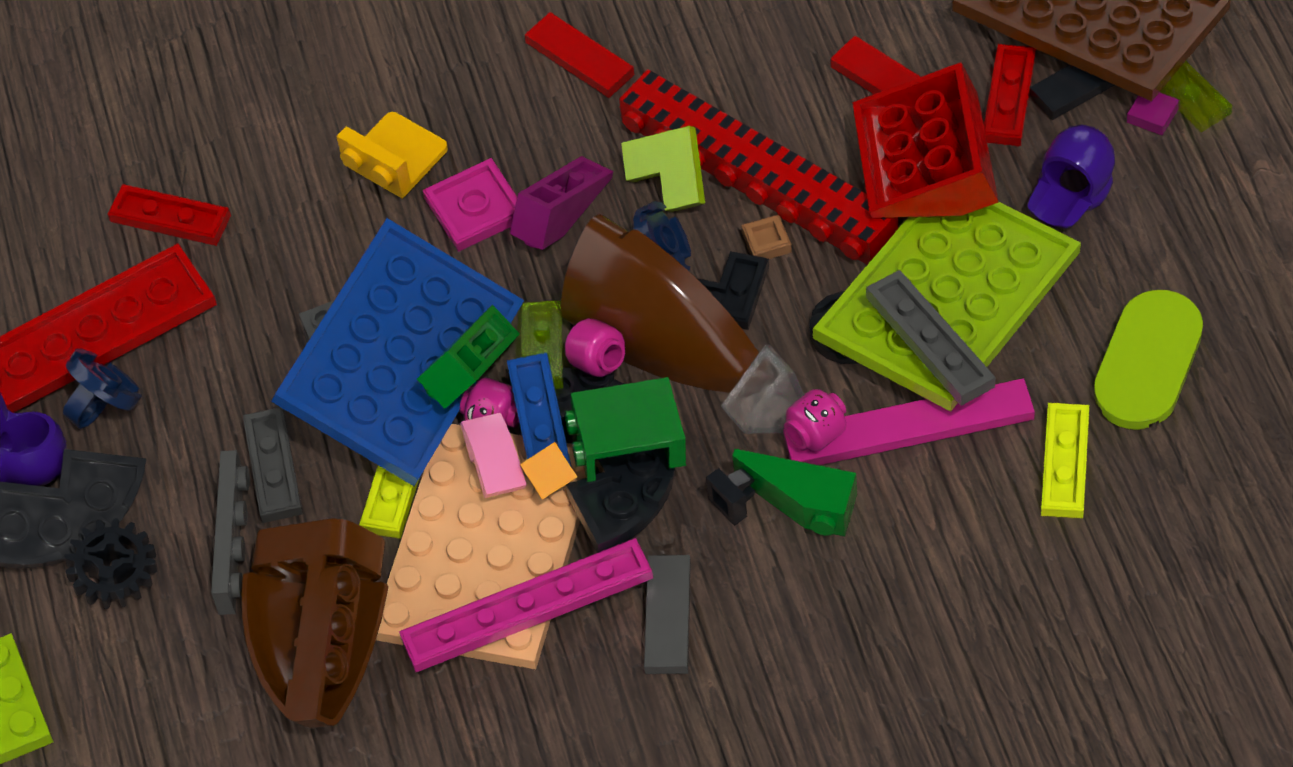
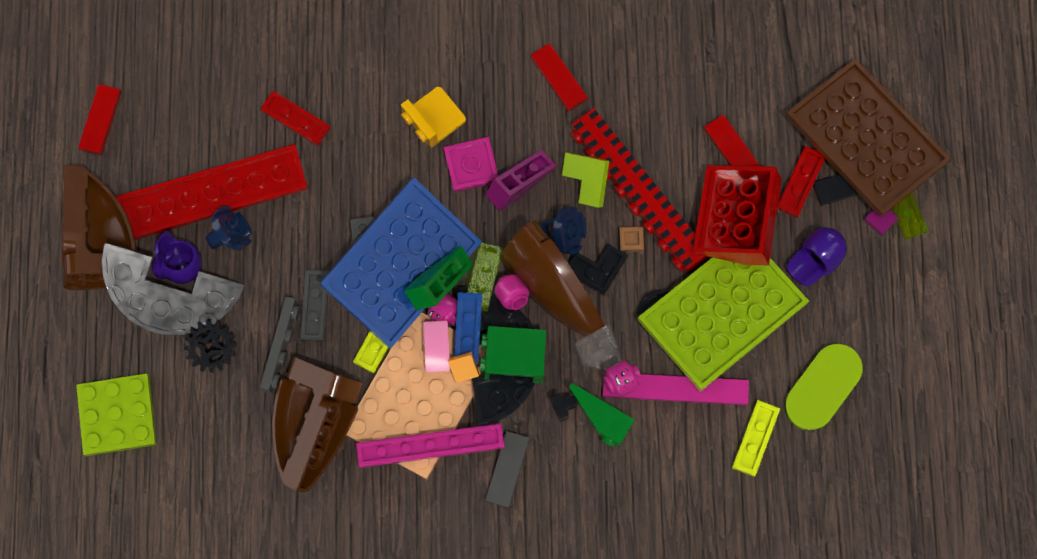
camera: 15 degrees right, 20 degrees up
(930, 337) = (701, 346): dark grey plate -> none

